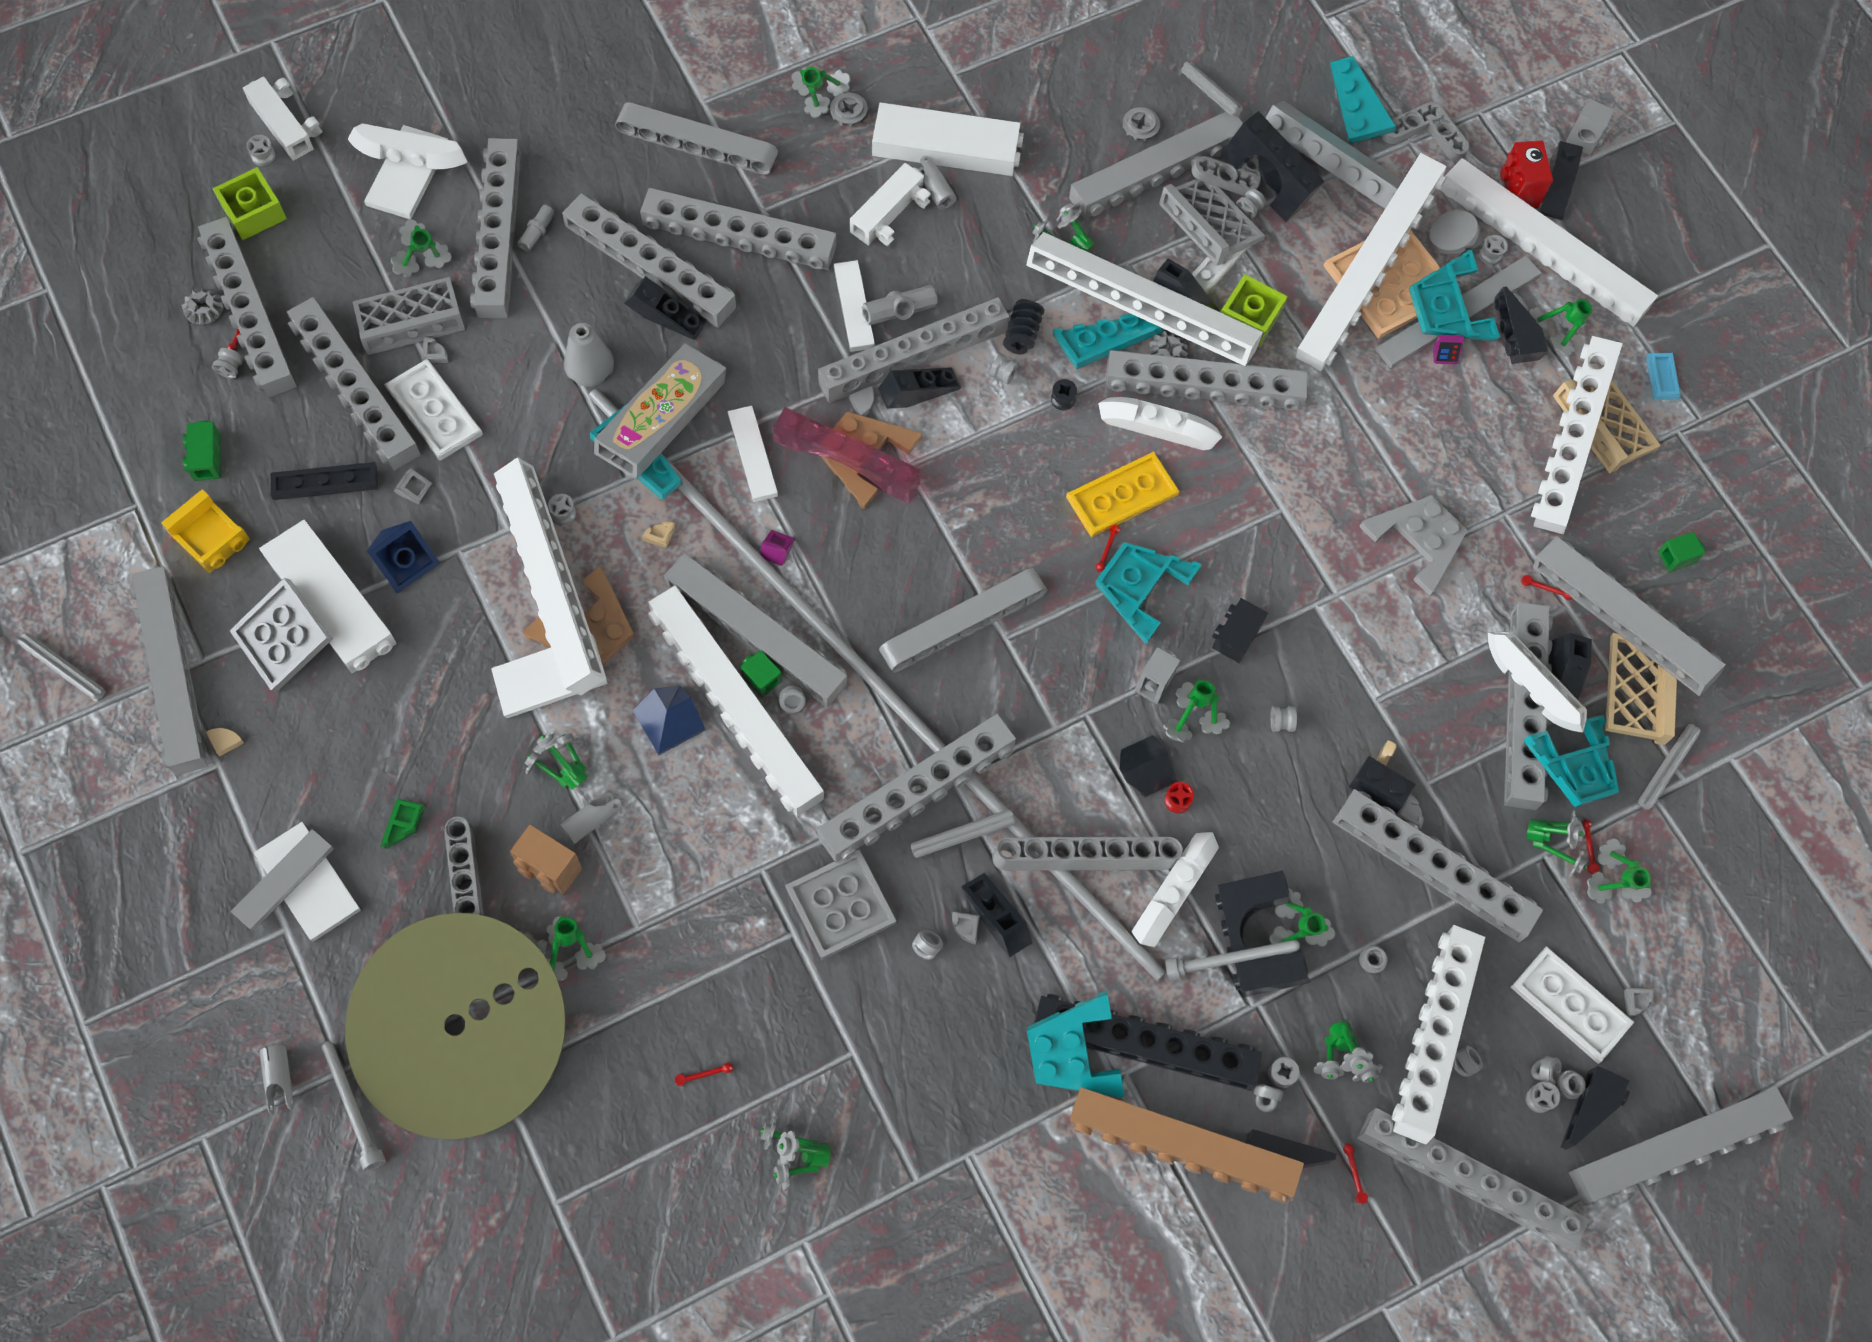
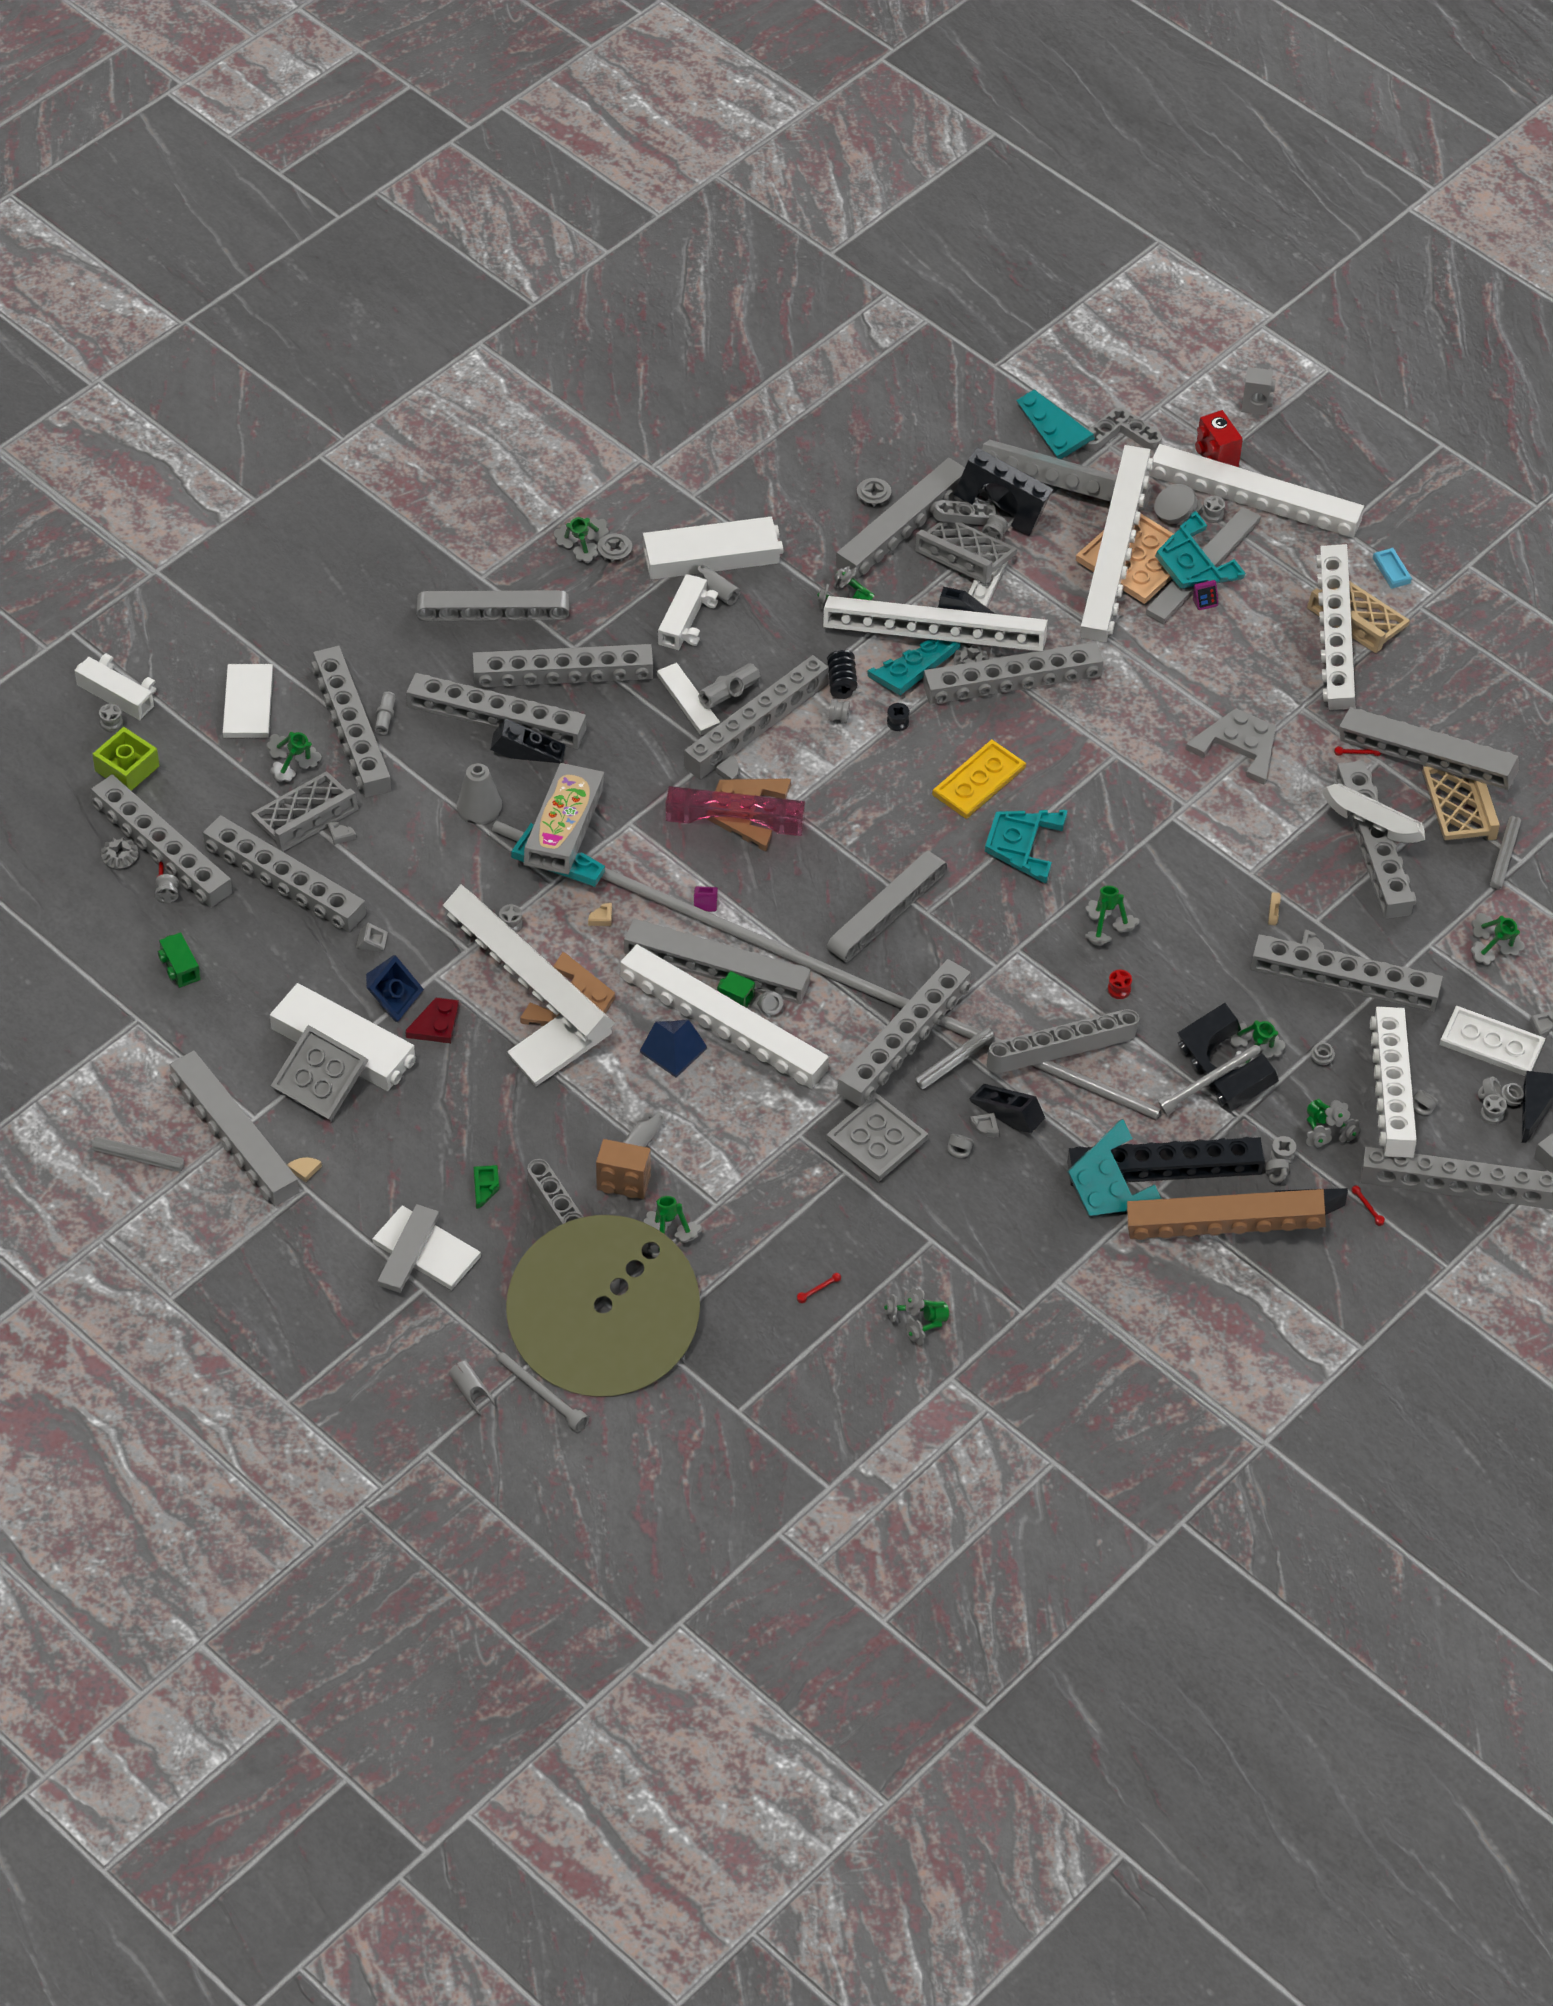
camera: 15 degrees left, 15 degrees down
(205, 531) = (212, 1020): yellow panel -> none
(324, 481) = (295, 954): black plate -> none
(406, 147) = (245, 677): white brick -> none
(433, 409) = (363, 876): white tile -> none
(435, 606) = (435, 1022): none -> dark red wing
(572, 773) = (613, 1106): plant -> none
(752, 454) = (653, 834): white tile -> none
(916, 386) = (769, 744): black slope -> none
(1114, 530) = (983, 807): red hinge -> none
(1147, 766) = (1085, 970): black slope -> none
(1157, 675) = (1065, 898): light grey brick -> none
(1159, 422) = (987, 716): white brick -> none
(1175, 889) = (1144, 1049): white brick -> none
(1210, 88) = (924, 447): light grey axle -> none
(1239, 630) = (1118, 849): black brick -> none
(1255, 305) = (1032, 601): lime brick -> none
(1283, 718) = (1181, 903): light grey wheel -> none
(1382, 784) = (1280, 924): black brick -> none
(1522, 333) = (1263, 565): black slope -> none
(1542, 830) = (1421, 925): green plant -> none
(1564, 168) = (1248, 425): black slope -> none
(1571, 661) = (1396, 793): black slope -> none
(1572, 317) = (1299, 543): plant -> none
(1582, 774) = (1435, 873): teal wing -> none
(1593, 867) = (1455, 912): red hinge -> none
(1681, 551) = (1456, 693): green brick -> none

